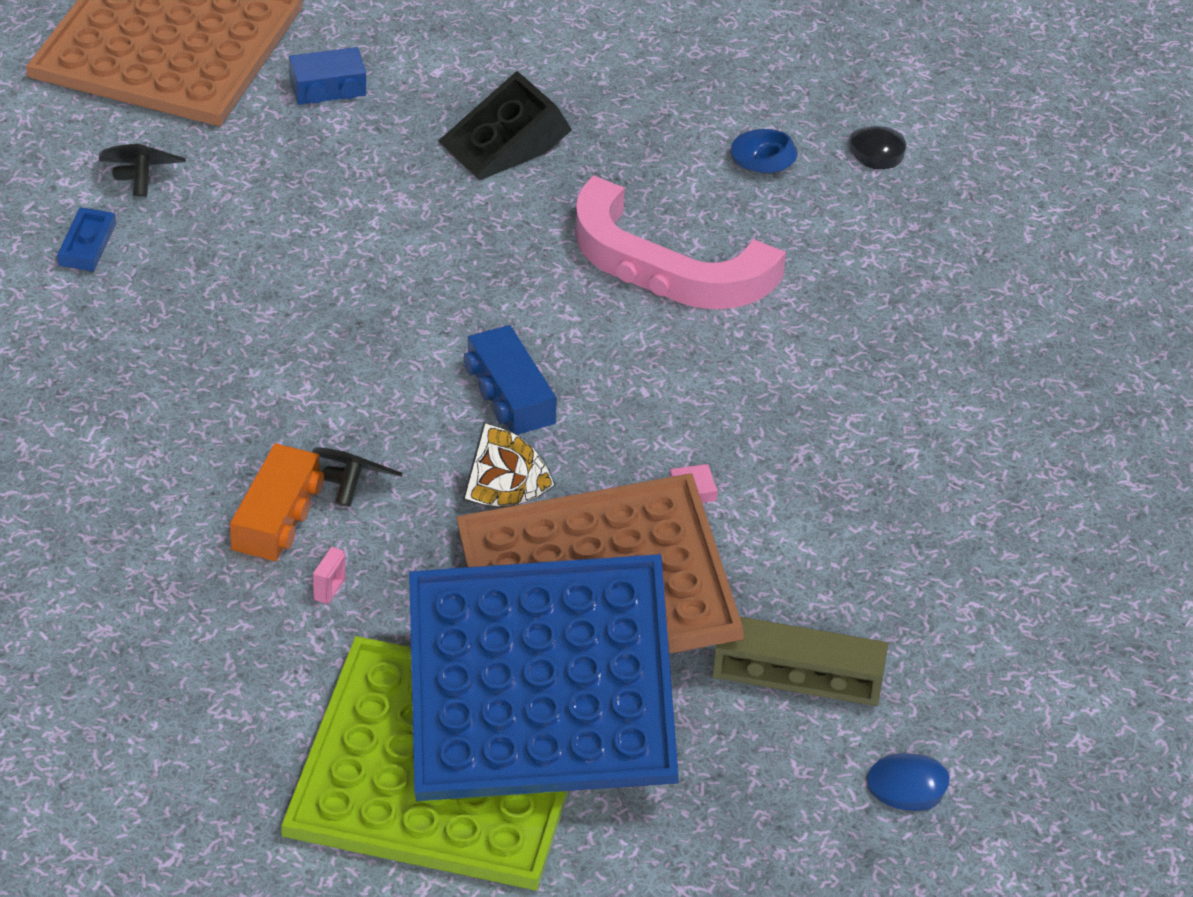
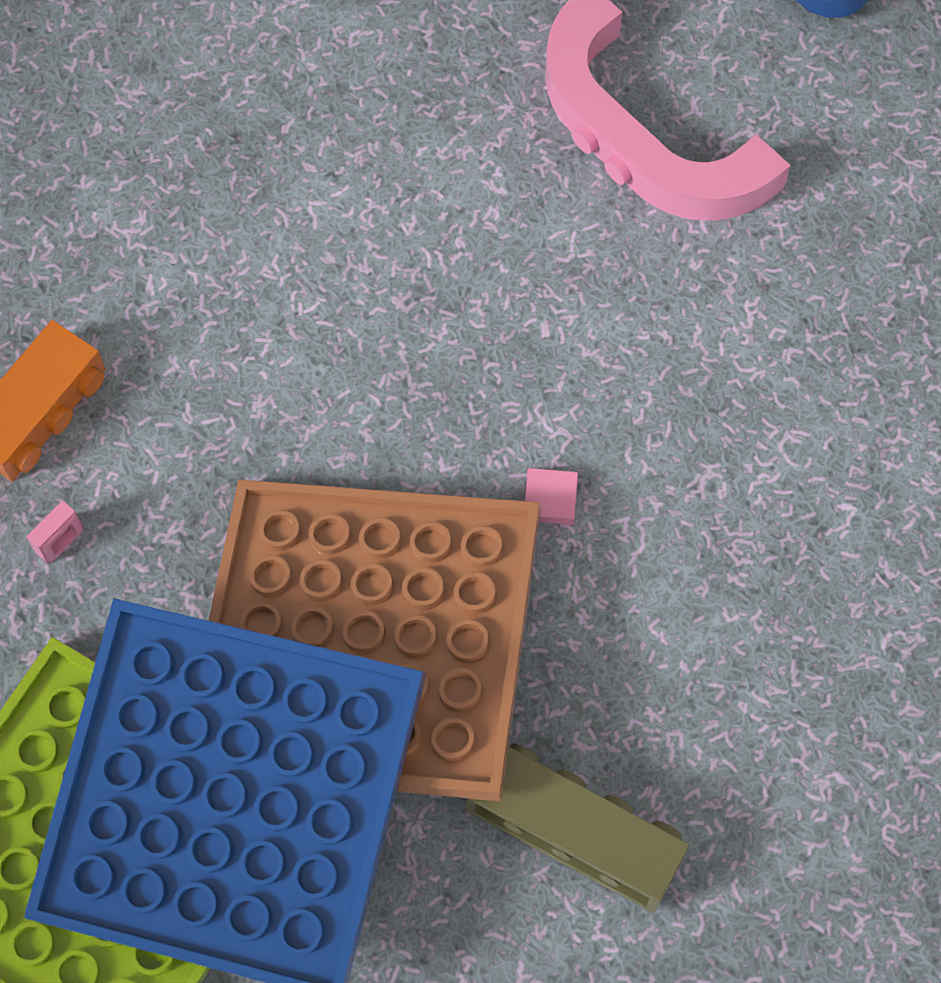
camera: 20 degrees right, 25 degrees up
(350, 475) = (134, 367): pearl dark grey shield -> none
(505, 470) = (318, 427): shield -> none
(510, 380) = (377, 280): blue brick -> none

